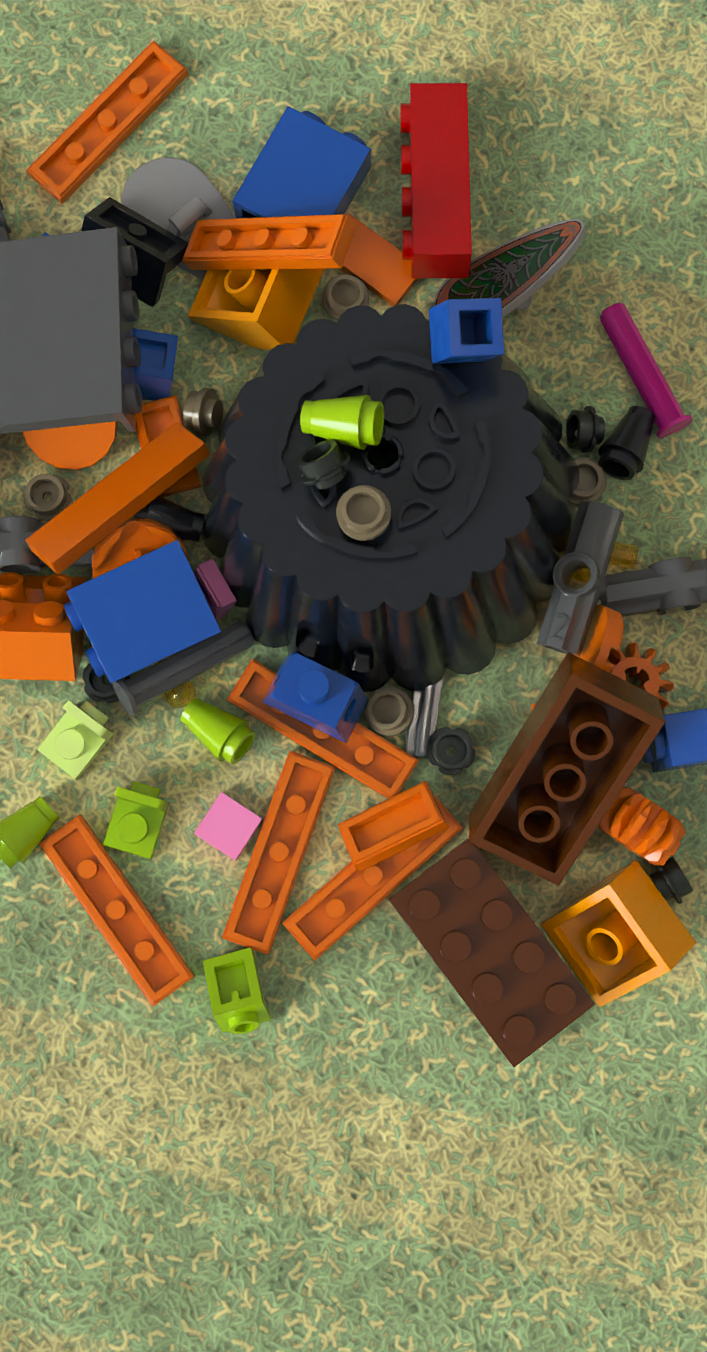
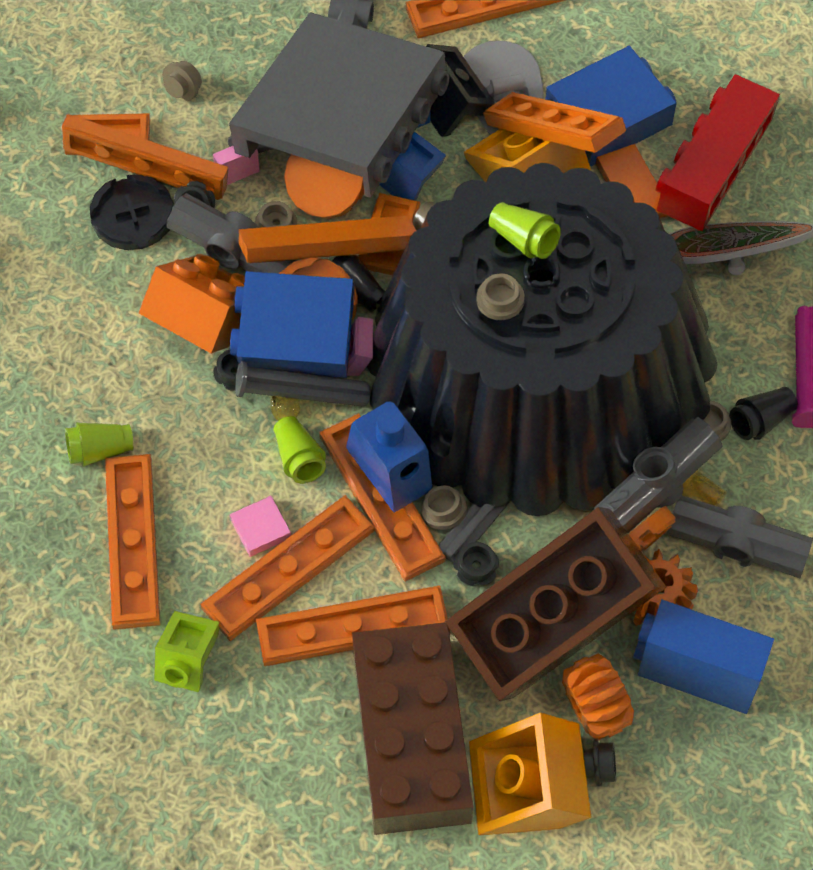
camera: 30 degrees right, 20 degrees down
(76, 738) = (185, 399): yellowish green bracket -> none
(136, 820) = (192, 480): lime bracket -> none
(323, 464) = (490, 250): pearl dark grey plate -> none
(392, 826) = (391, 590): orange tile -> none
(466, 330) = (654, 210): blue brick -> none
(590, 429) = (733, 384): pearl dark grey plate -> none

